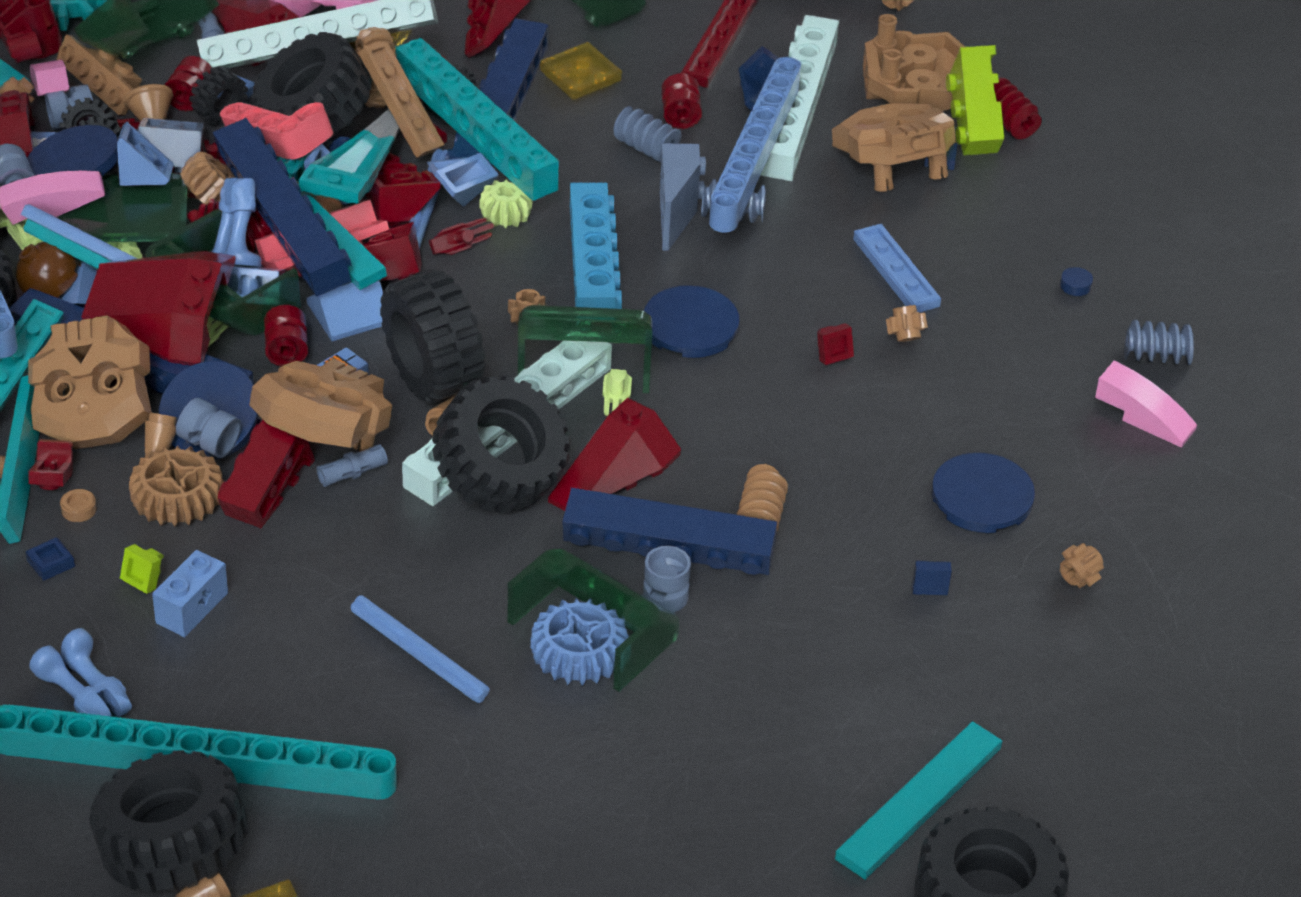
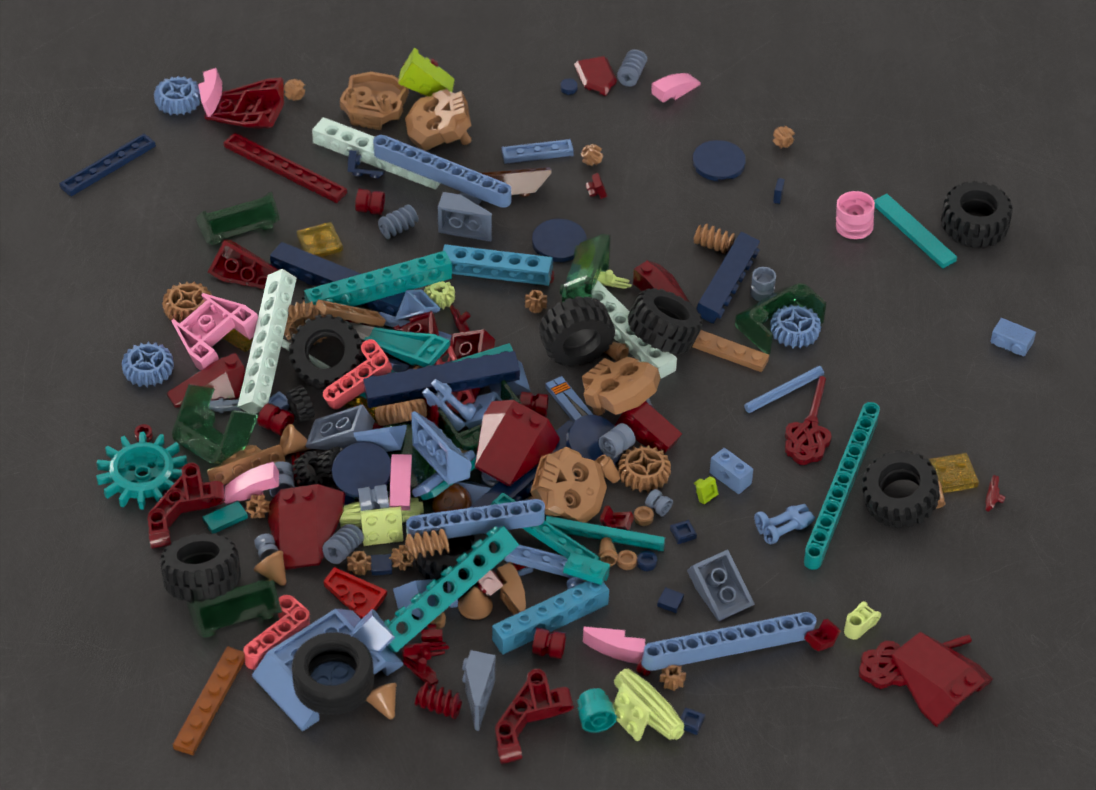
camera: 75 degrees left, 5 degrees up
(103, 202) = (439, 450): none -> medium blue slope
(104, 510) = (659, 502): none -> sand blue wheel
(308, 693) = (796, 441): none -> dark red piece
(496, 568) = (731, 351): none -> medium nougat plate
(792, 237) = (522, 180): none -> wedge
(898, 684) = (855, 215): none -> bright pink wheel
(1118, 308) = (596, 74): none -> dark red tile

